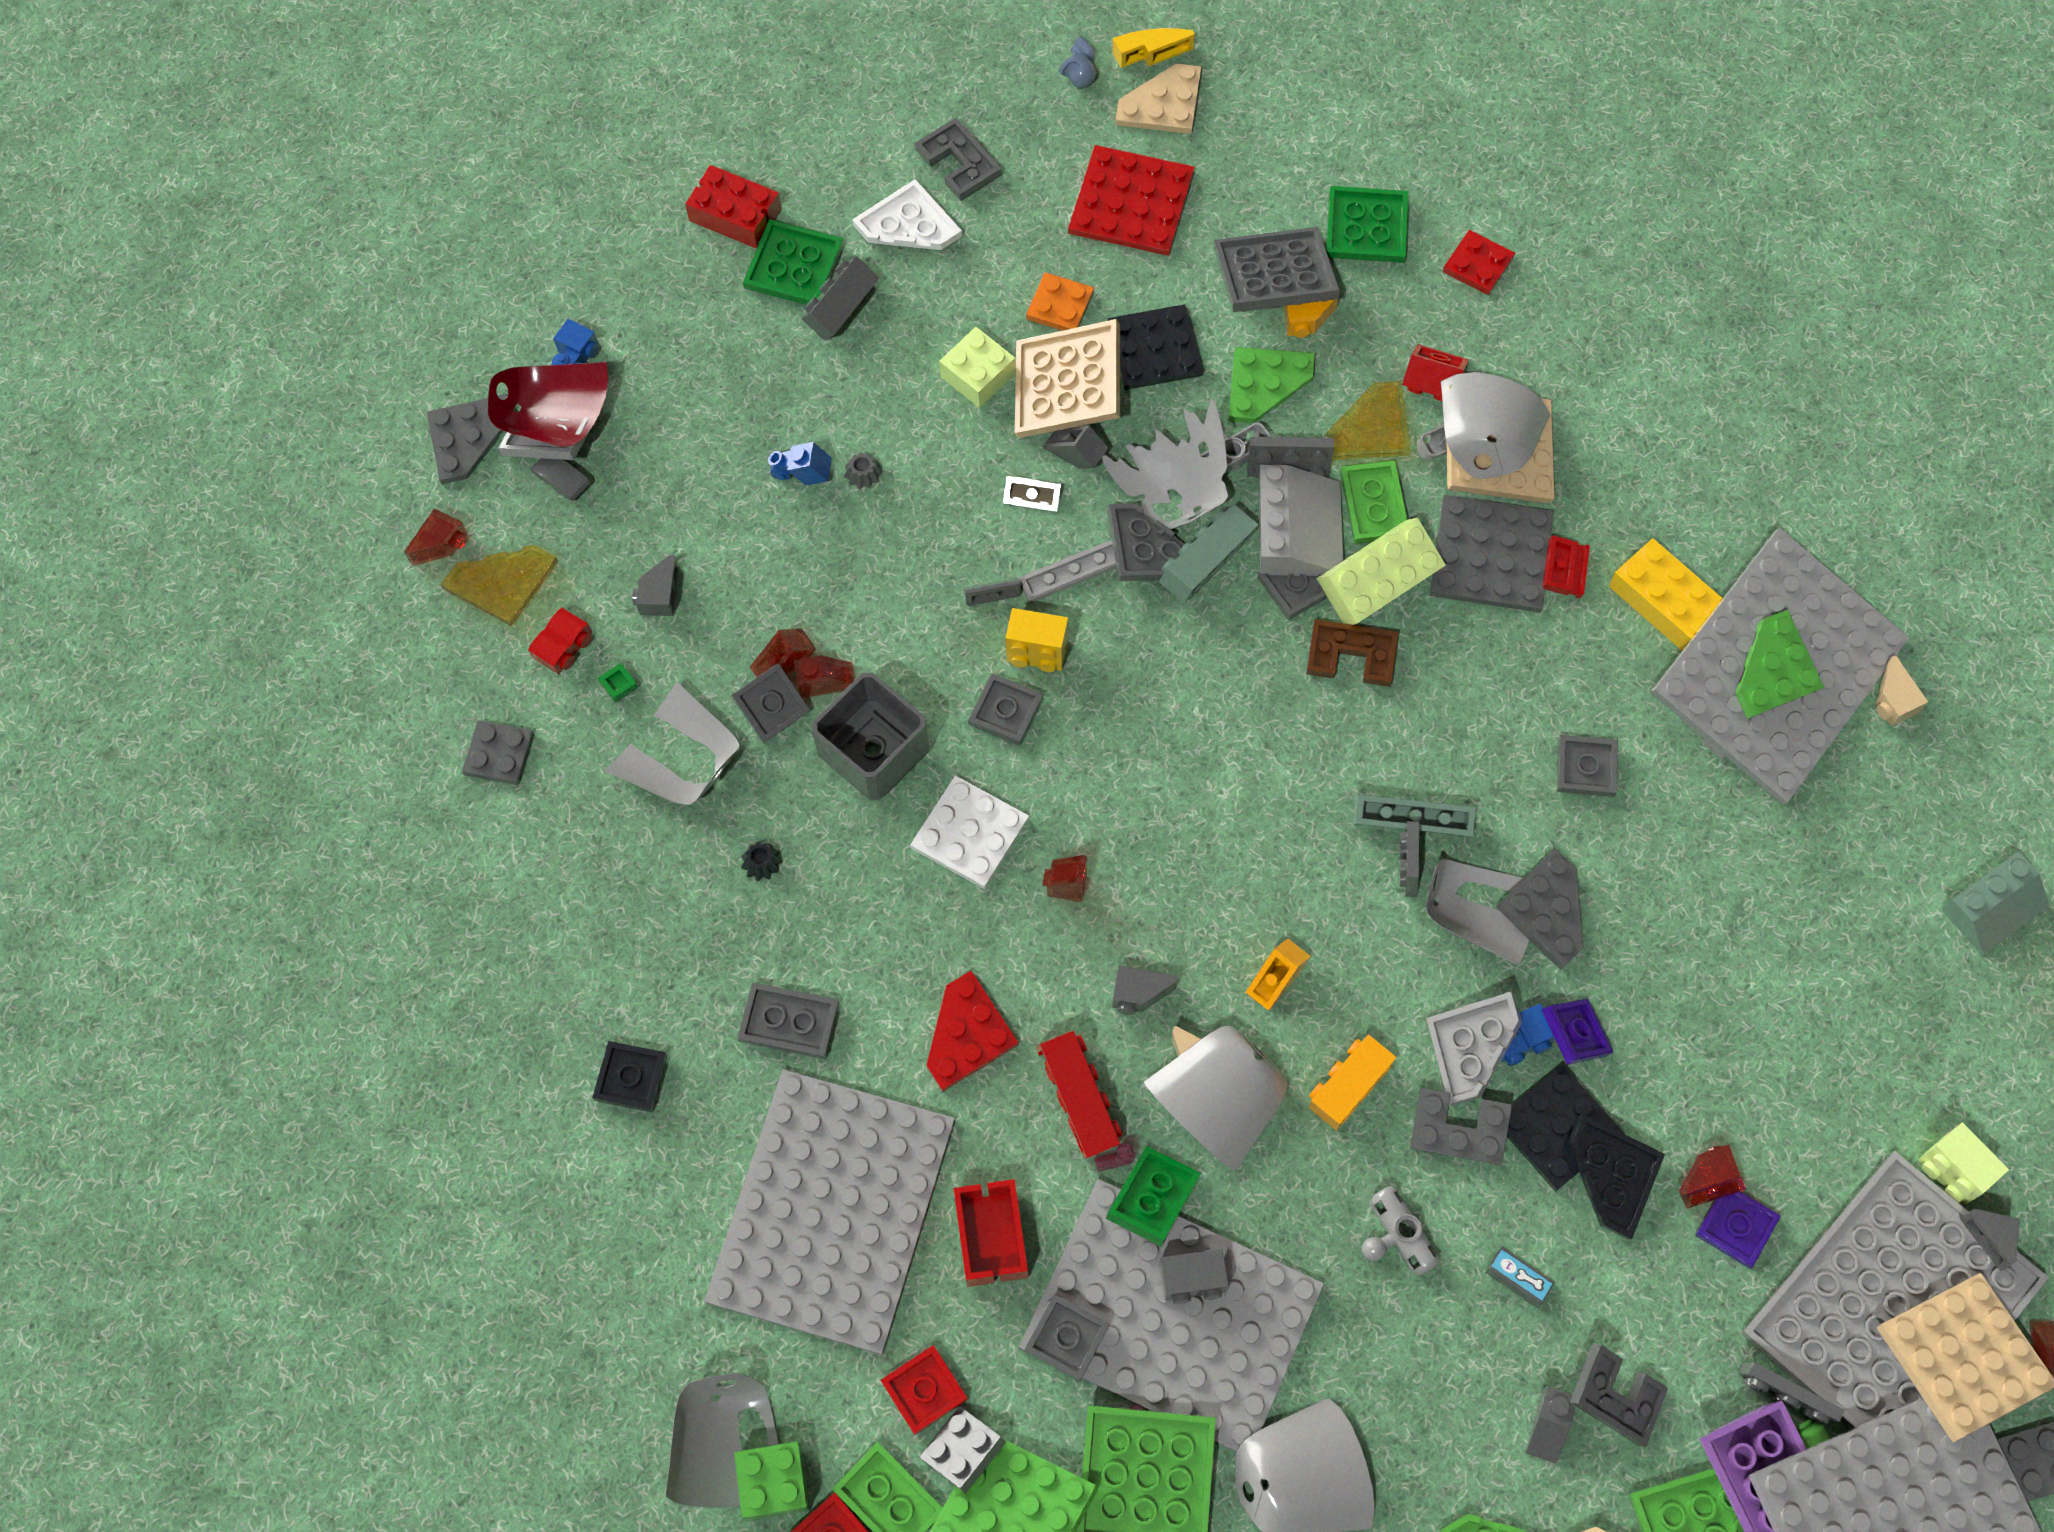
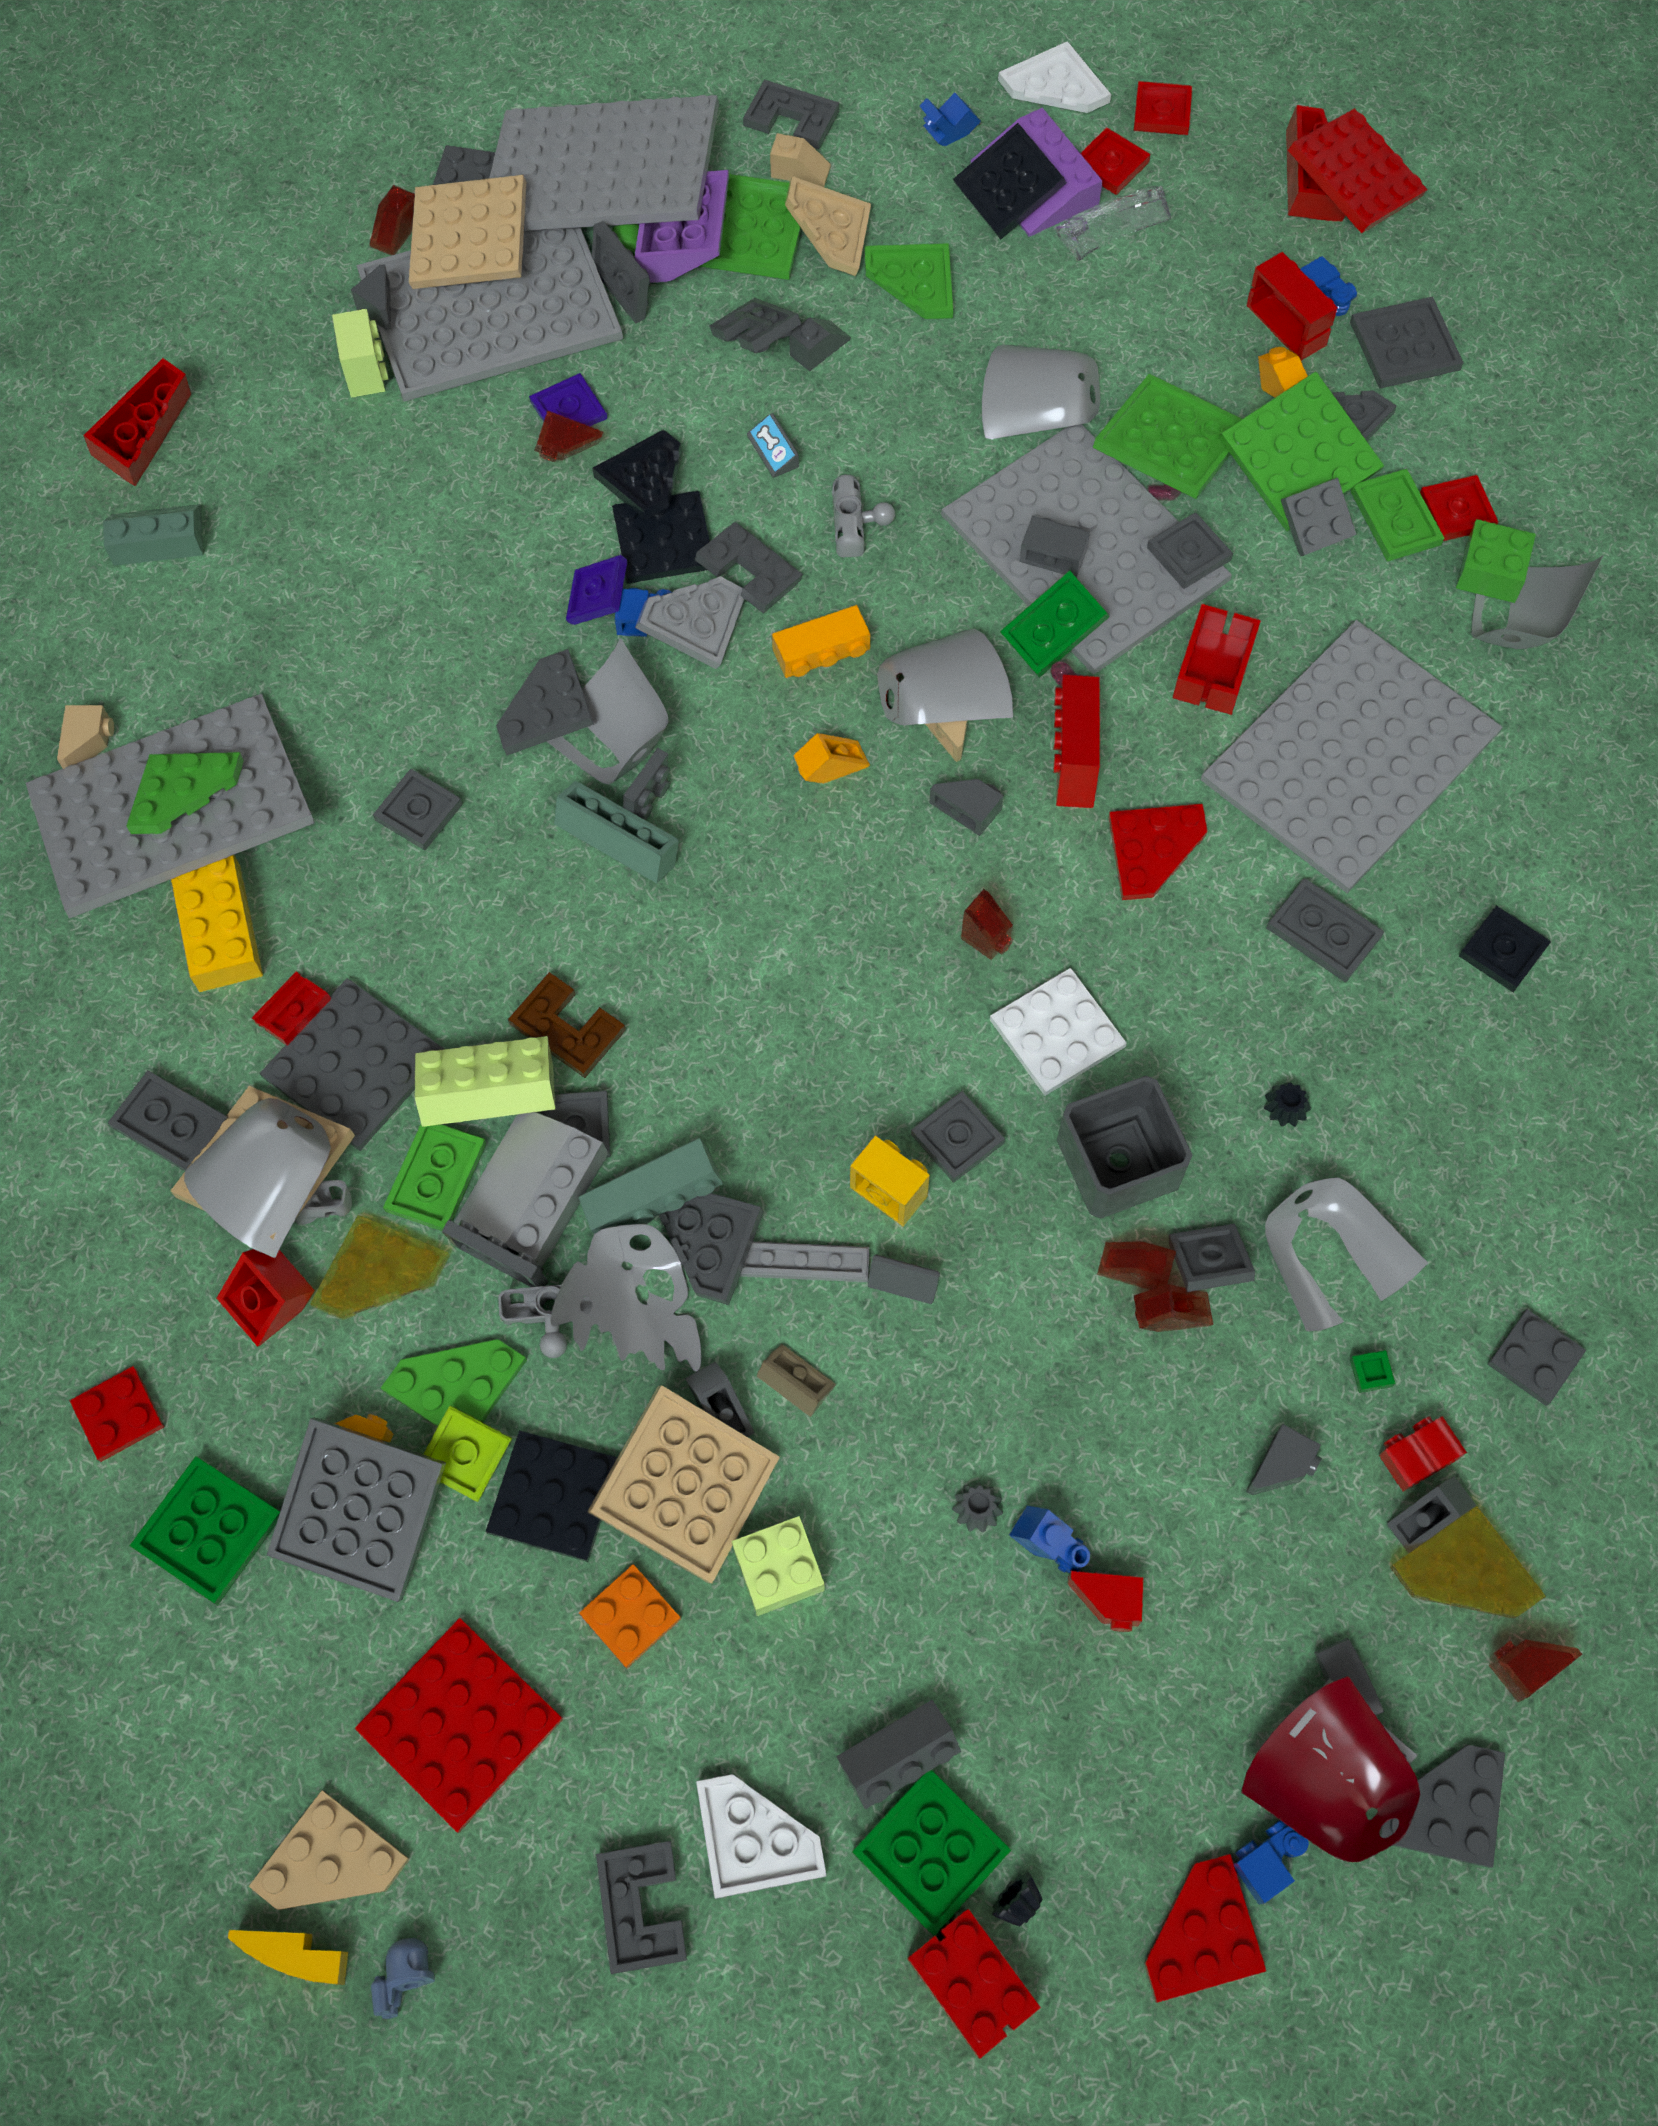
camera: 155 degrees left, 0 degrees up
(537, 604) = (1431, 1514): none -> dark grey slope
(600, 298) = (1204, 1935): none -> red plate
(726, 259) = (1018, 1901): none -> black piece
(744, 450) = (1110, 1598): none -> red slope
(924, 1390) = (1330, 578): red plate -> none
(1229, 338) = (470, 1452): none -> lime tile
(1592, 448) = (166, 1120): none -> dark grey plate

